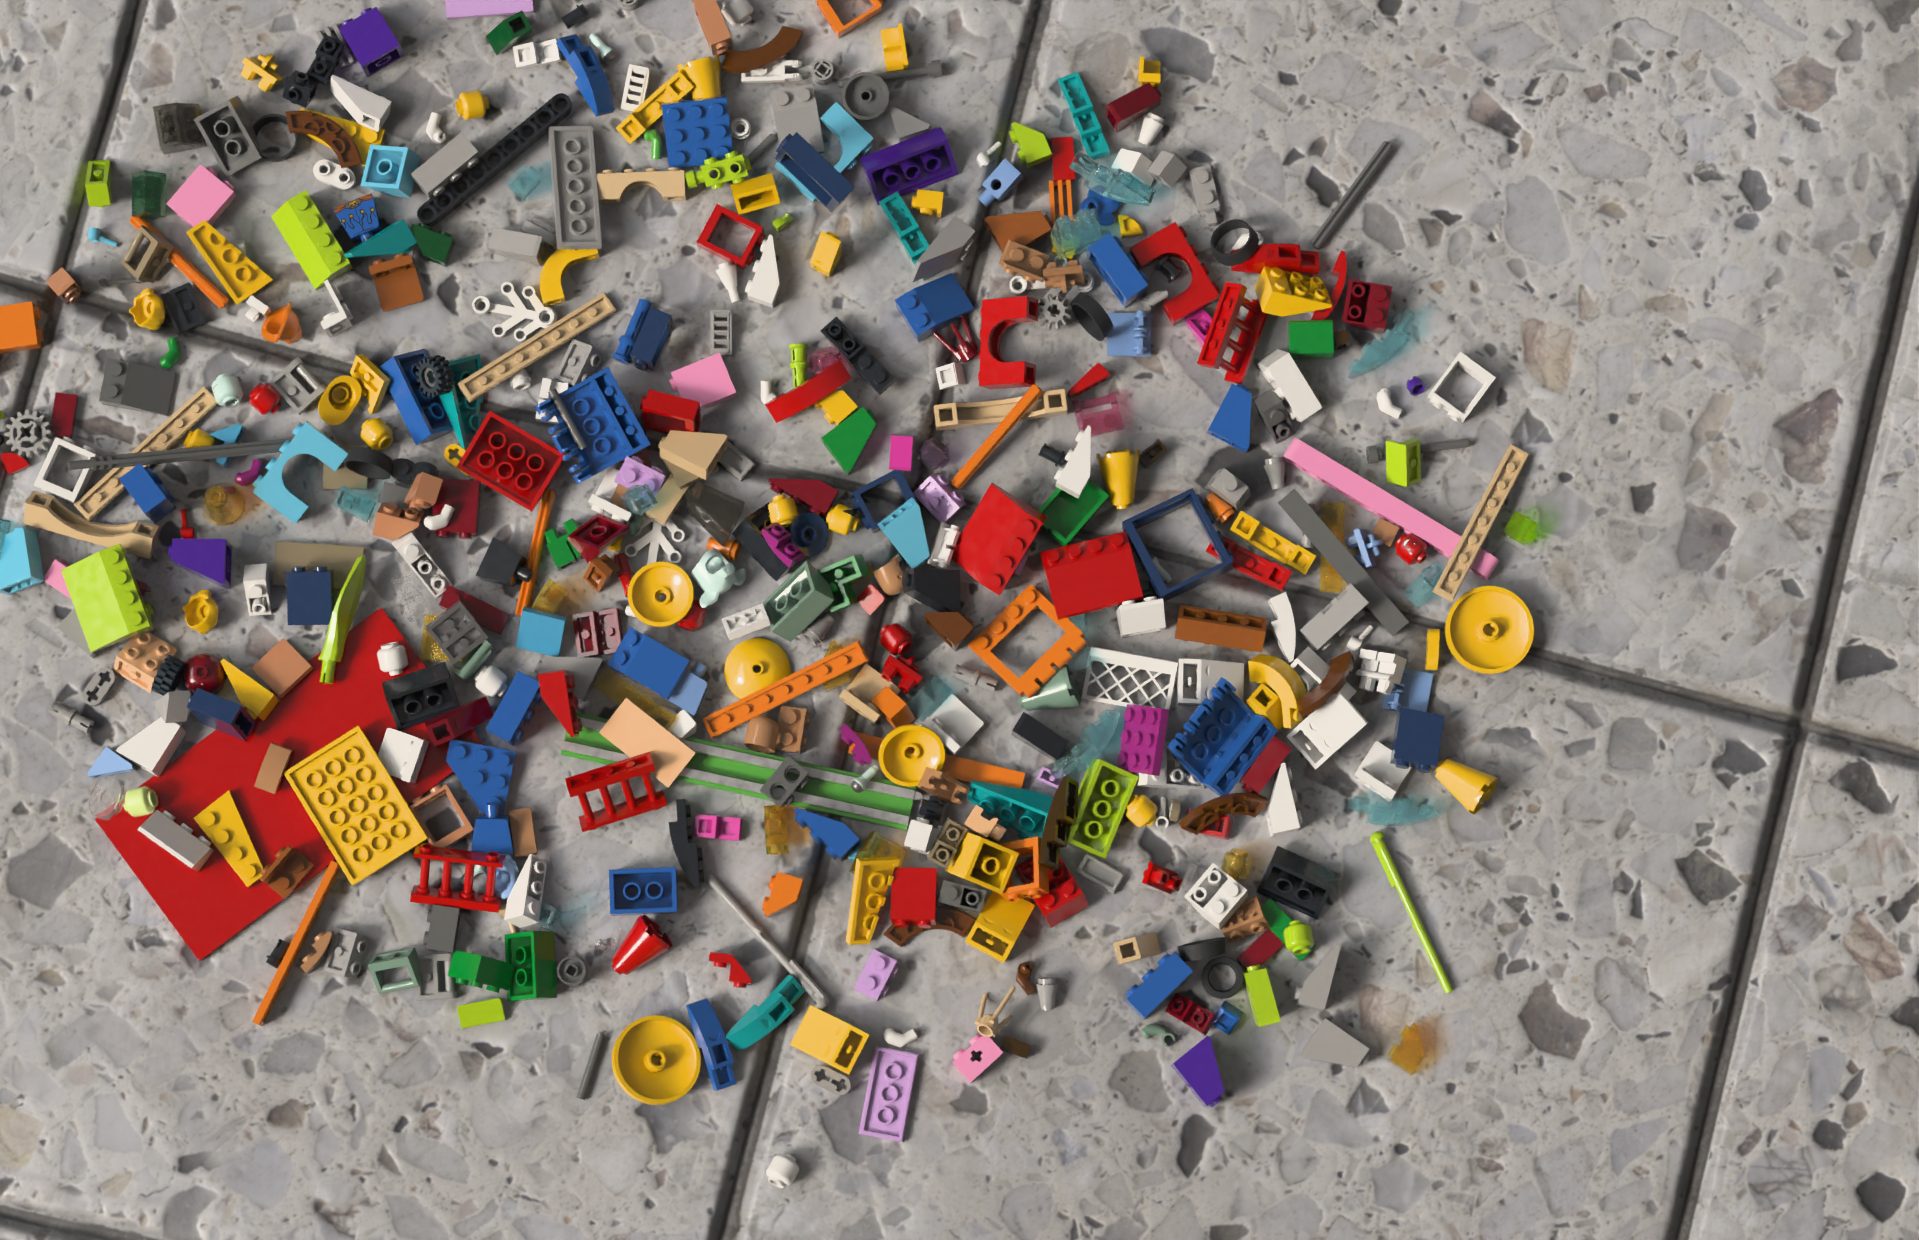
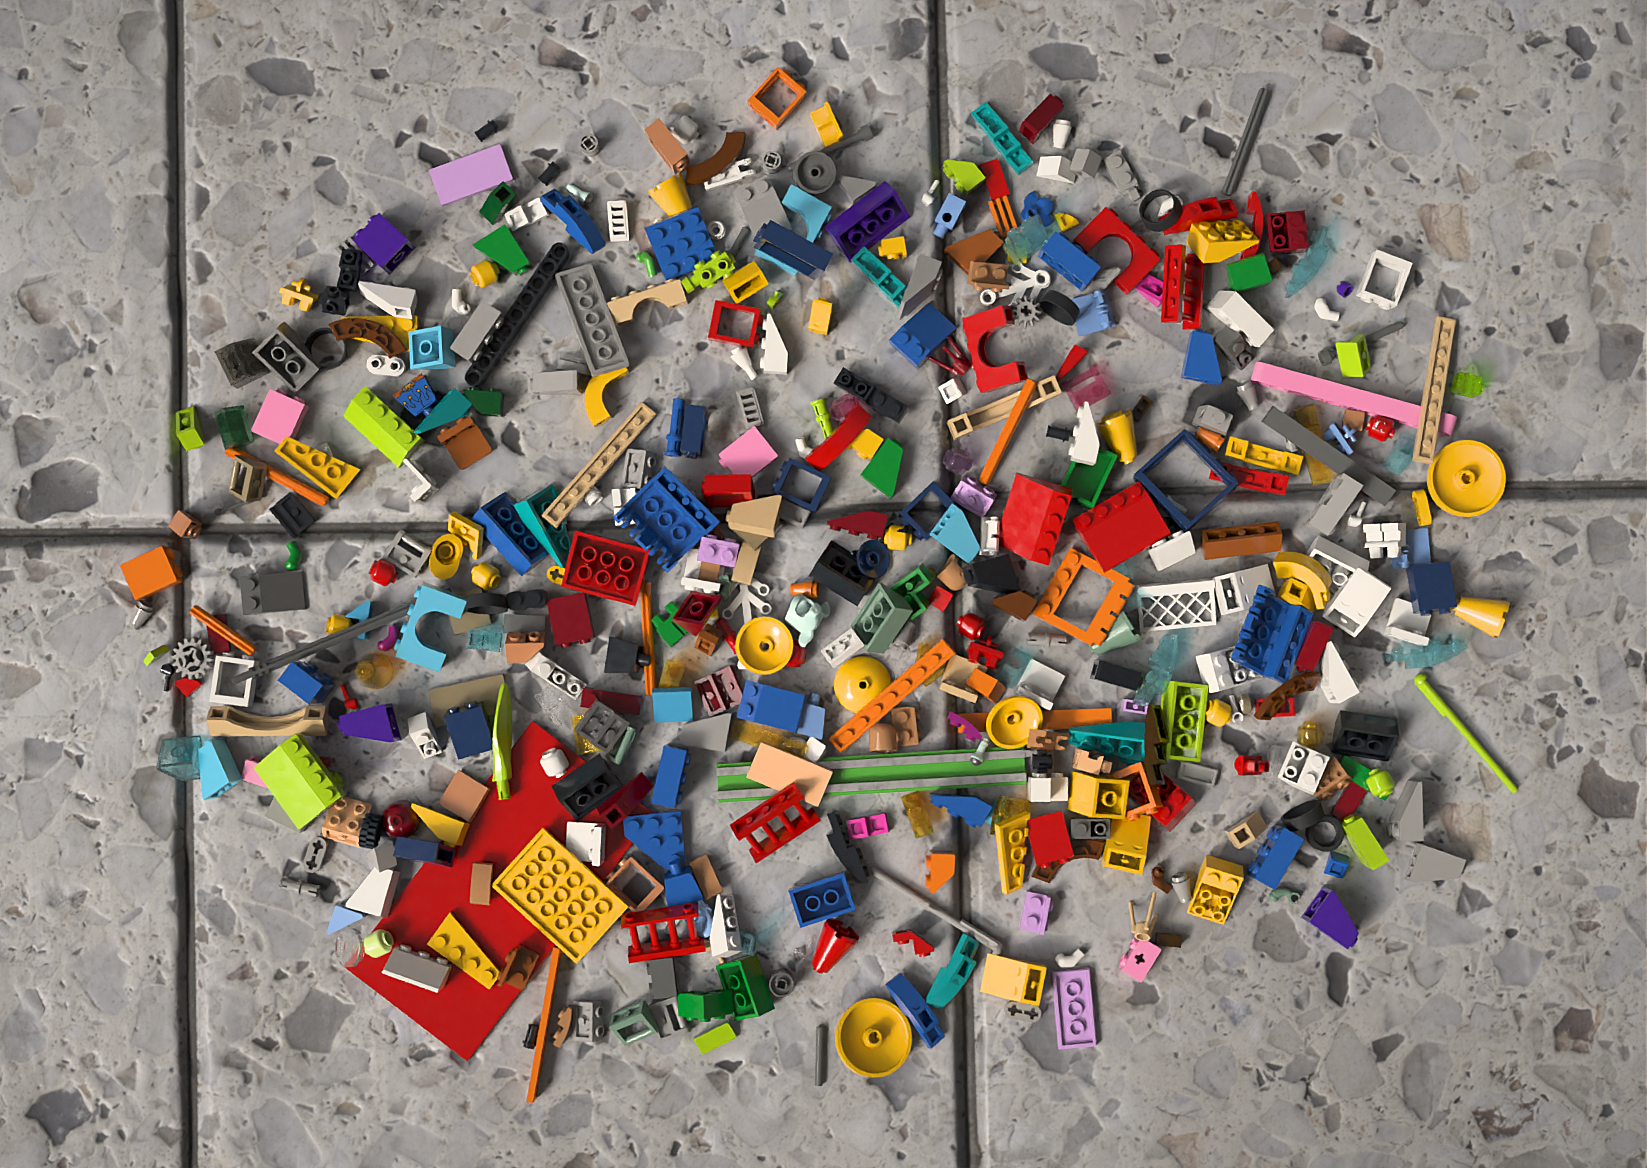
camera: 10 degrees left, 5 degrees up
(71, 412) = (223, 630): none -> orange axle
(94, 236) = (199, 474): medium azure hand -> none
(148, 310) = (262, 525): yellow hair -> none
(161, 439) = (303, 635): tan tile -> none
(201, 612) = (382, 768): yellow hair -> none
(227, 390) = (349, 574): light aqua head -> none
(256, 309) = (354, 497): white tile -> none
(282, 326) = (379, 506): orange helmet -> none
(423, 492) = (539, 615): nougat slope -> none
(435, 376) = (520, 514): black bush -> none
(439, 521) = (561, 635): white arm -> none
(491, 681) = (642, 757): white head -> none
(500, 86) = (504, 250): none -> green slope
(515, 182) = (540, 328): clear light blue brick -> none
(517, 312) = (575, 439): white plant -> none
(558, 695) = (704, 758): red slope -> none
(567, 419) = (643, 519): dark grey bar -> none
(636, 496) = (719, 568): clear light blue brick -> none
(651, 108) = (636, 234): yellow slope -> none
(714, 510) = (788, 561): clear smoke slope -> none
(769, 448) = (785, 468): none -> dark blue window
(778, 540) = (850, 572): magenta slope -> none
(779, 778) = (910, 773): dark grey brick -> none
(782, 510) = (846, 545): yellow head -> none
(782, 1170) = (1005, 1099): white head -> none
(901, 452) = (931, 467): dark pink slope -> none
(947, 843) = (1064, 787): dark tan slope -> none
(1063, 276) = (1026, 279): medium nougat hips -> none
(1083, 1006) = (1215, 889): none -> yellow slope
(1116, 186) = (1045, 190): clear light blue slope -> none
(1143, 739) = (1205, 654): magenta plate -> none
(1149, 72) = (1045, 85): yellow panel -> none
(1169, 269) = (1110, 248): black bush -> none
(1190, 1013) = (1307, 871): dark red slope -> none
(1284, 625) = (1293, 523): white slope -> none
(1331, 684) = (1351, 563): reddish brown tile -> none
(1409, 1052) = (1497, 850): clear yellow slope -> none

